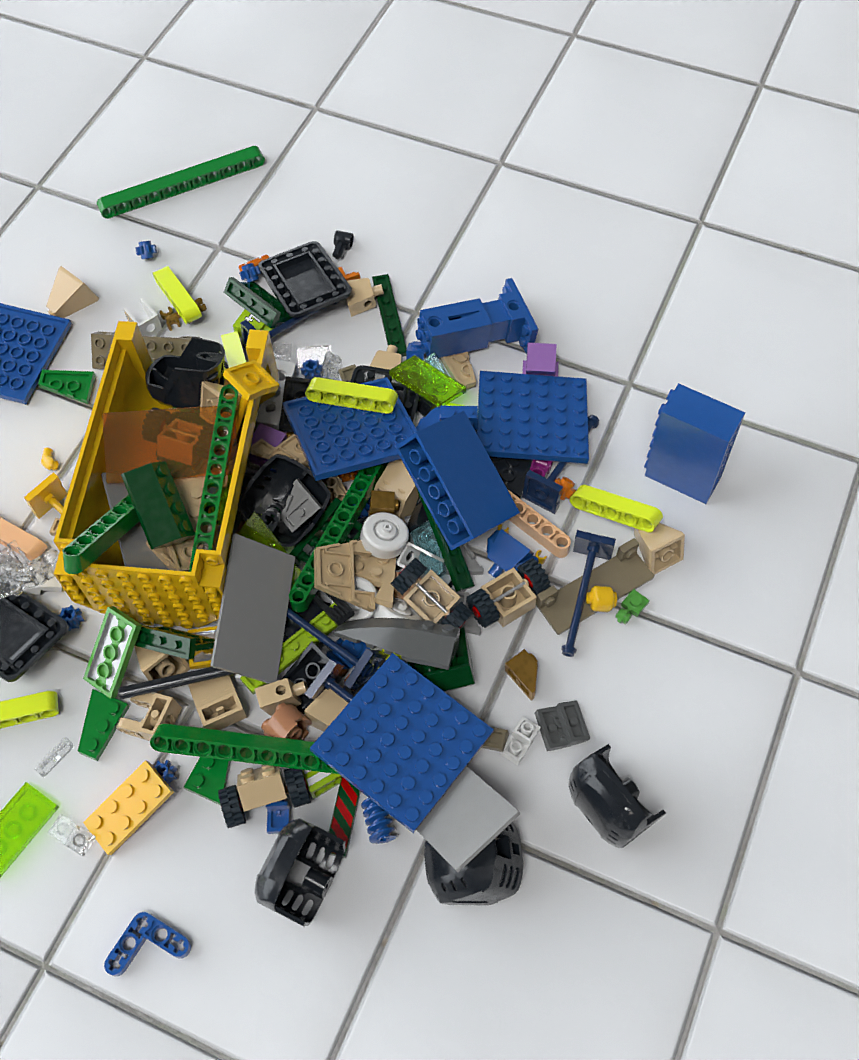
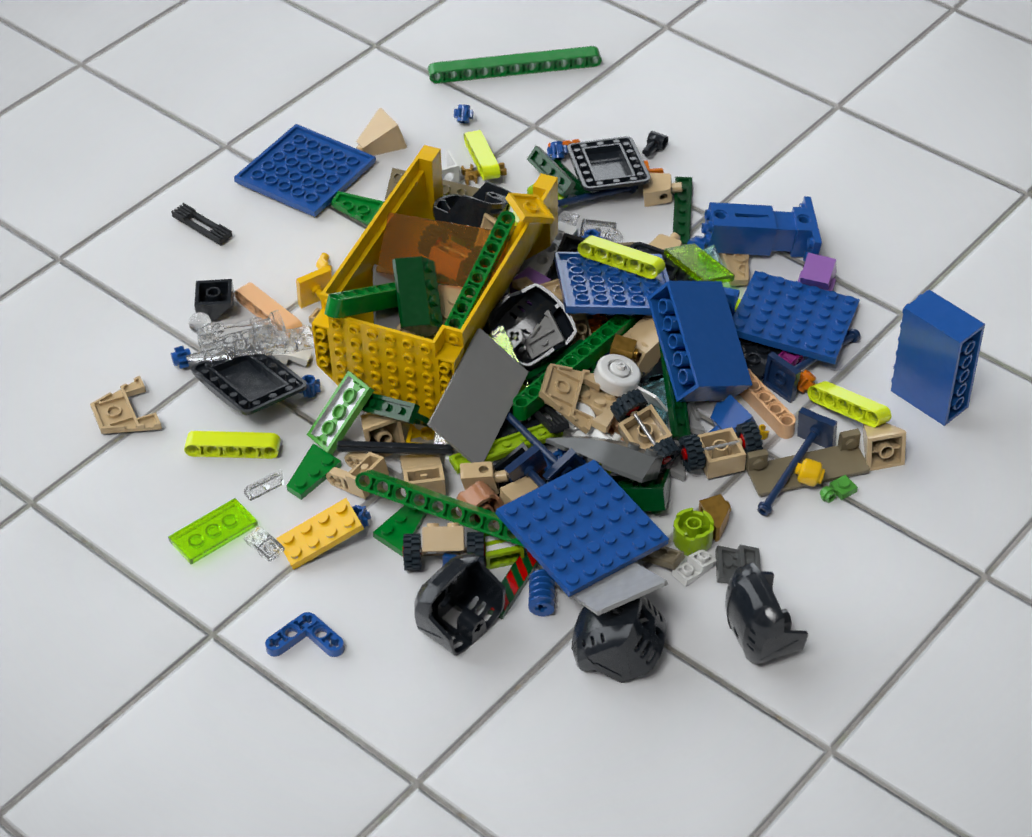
camera: 15 degrees right, 15 degrees down
(509, 689) = (693, 531): none -> lime brick

